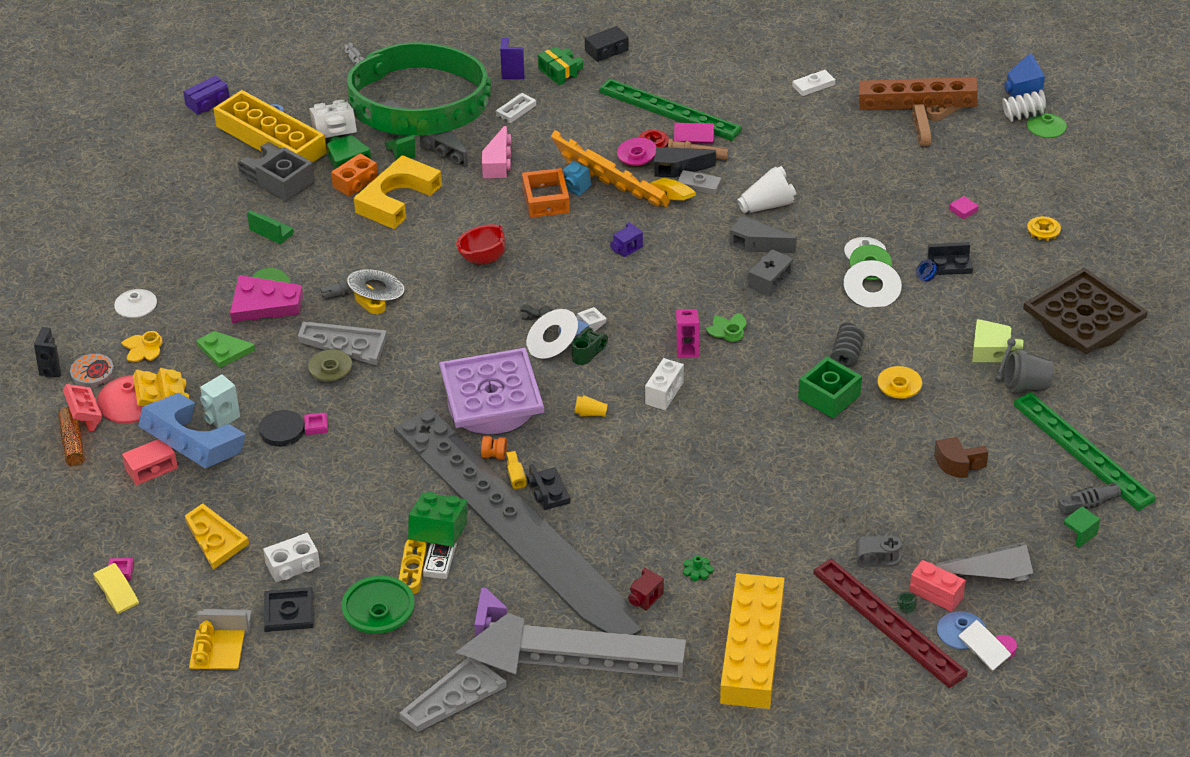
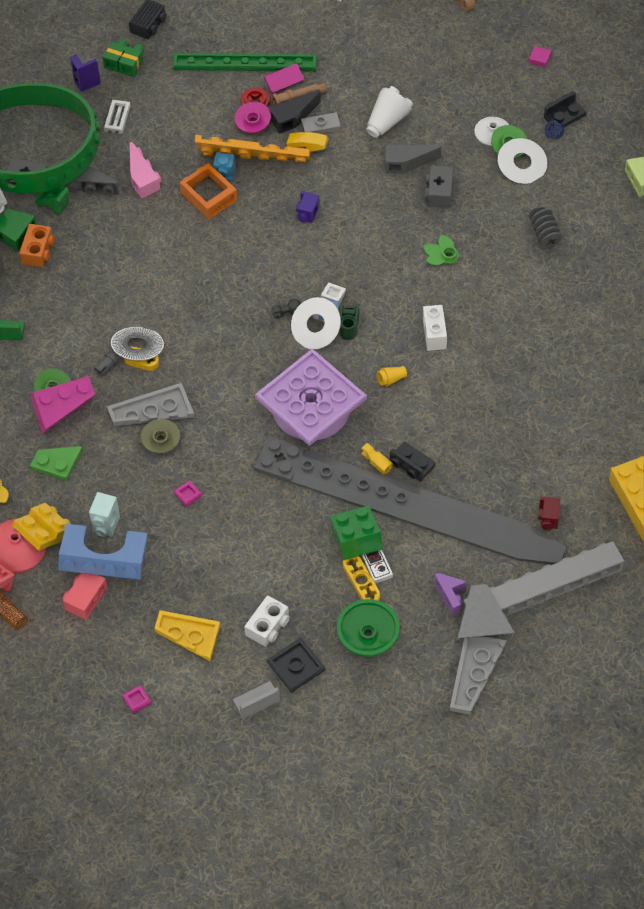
camera: 30 degrees left, 15 degrees up
(116, 588) = (150, 717): light yellow slope -> none
(216, 648) = (268, 726): yellow hinge -> none
(281, 428) = (164, 511): black tile -> none
(400, 174) = (76, 226): yellow arch -> none
(482, 244) = (198, 265): red cylinder -> none
(494, 447) = (346, 447): orange wheel -> none
(687, 326) = (419, 272): dark pink torso -> none
(697, 568) = (569, 475): green plant -> none
(830, 387) = (560, 271): green brick -> none
(899, 382) = (607, 236): yellow dish -> none
(1042, 222) = (608, 44): yellow gear -> none

